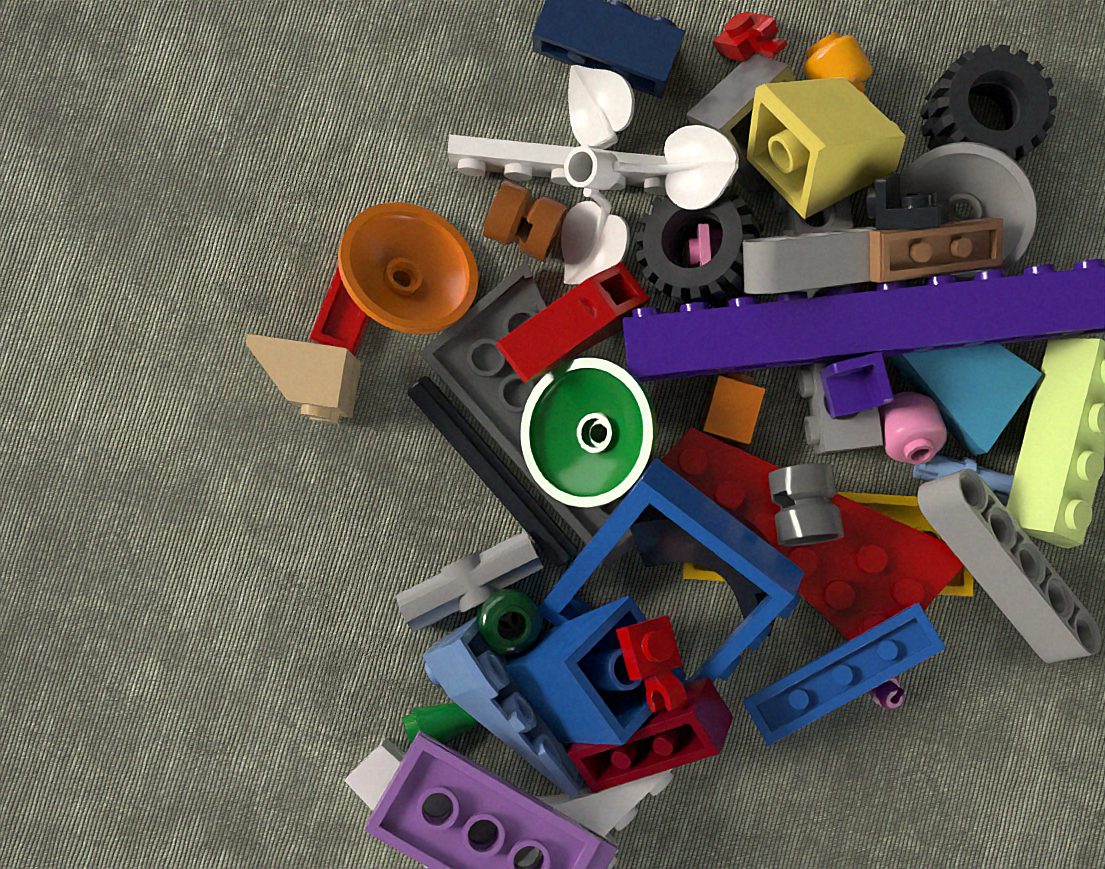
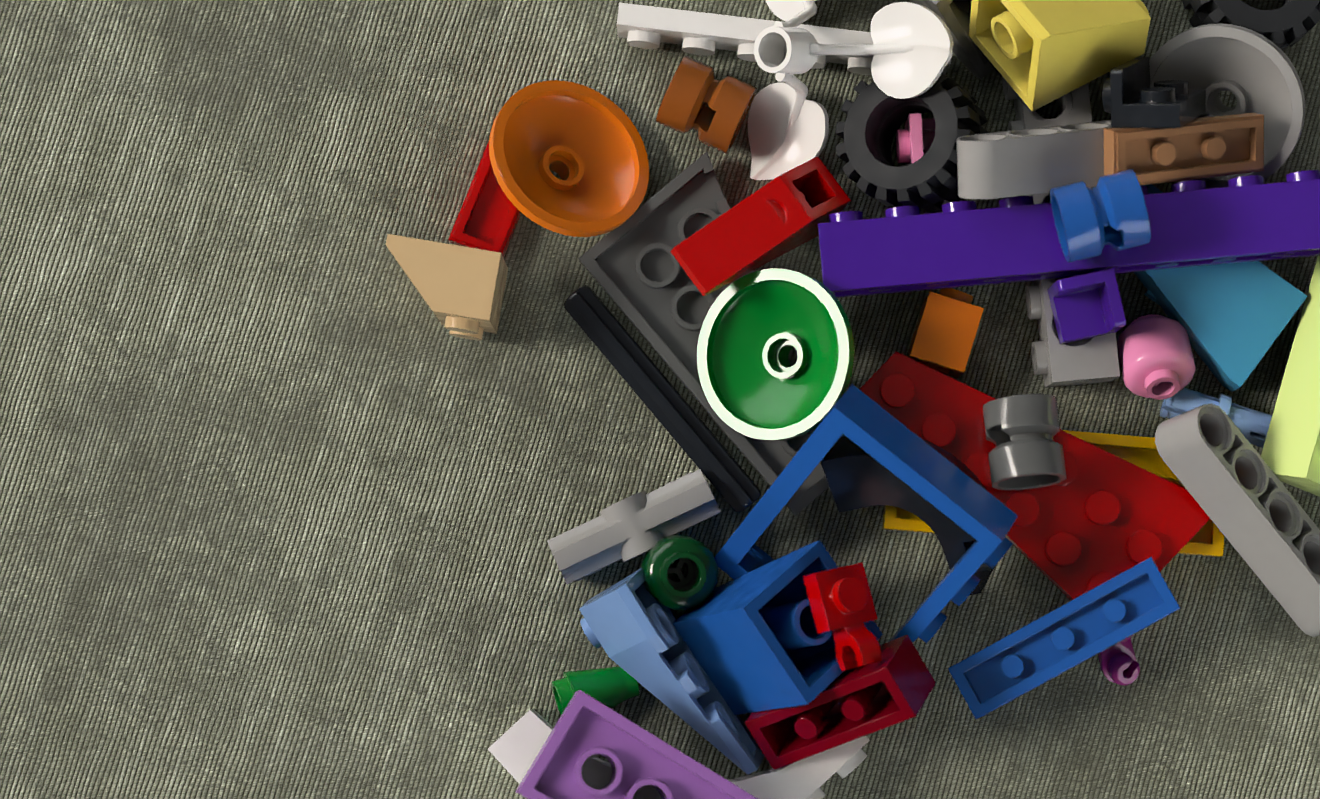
camera: 10 degrees right, 0 degrees up
(878, 304) = (1100, 215): none -> blue wheel

